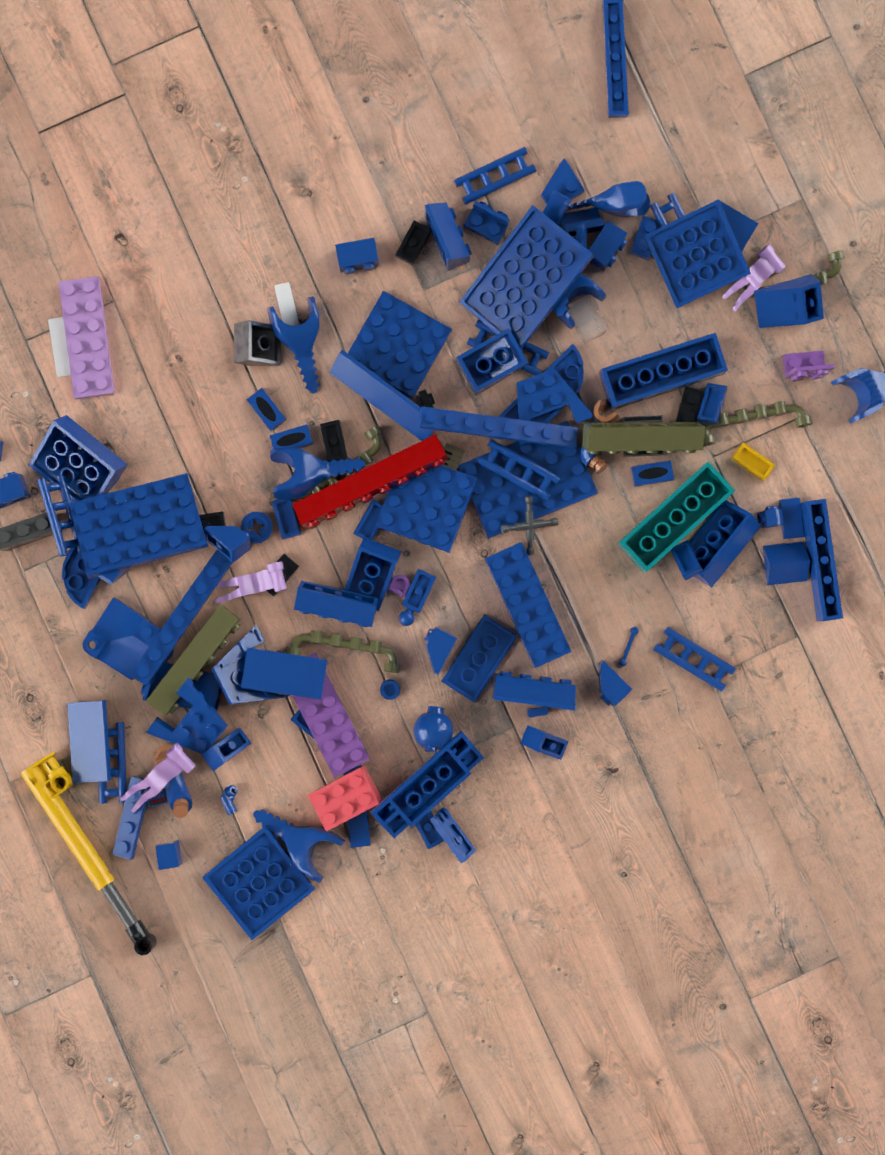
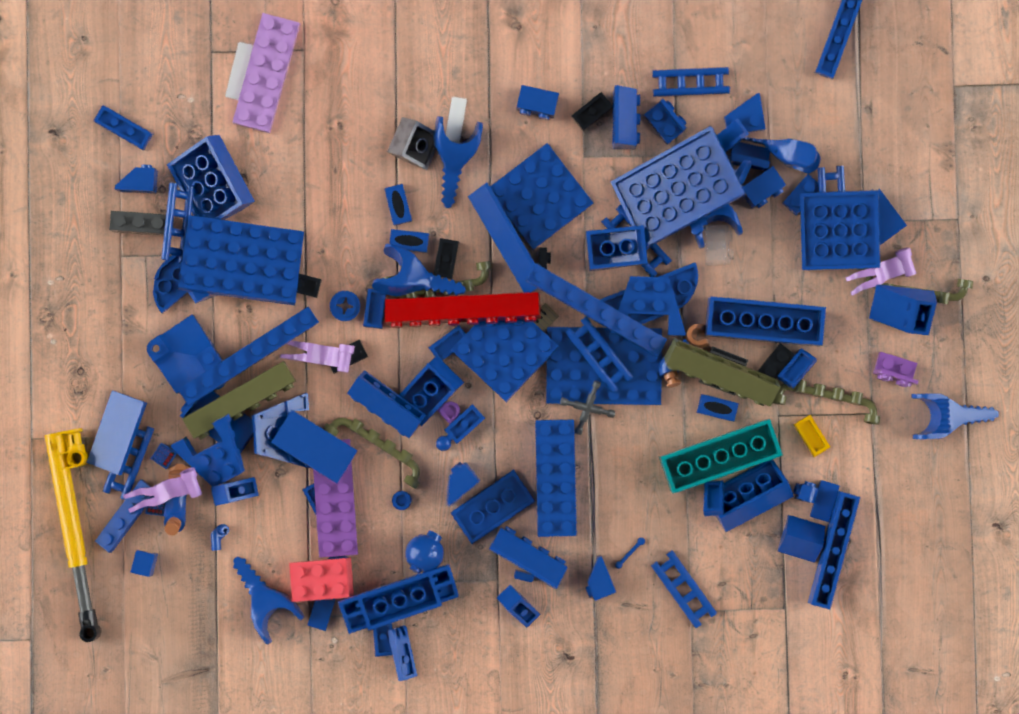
camera: 25 degrees right, 0 degrees up
(144, 744) = (164, 456): none -> tile
(228, 540) = (315, 308): blue slope -> none
(258, 883) = (212, 621): blue plate -> none

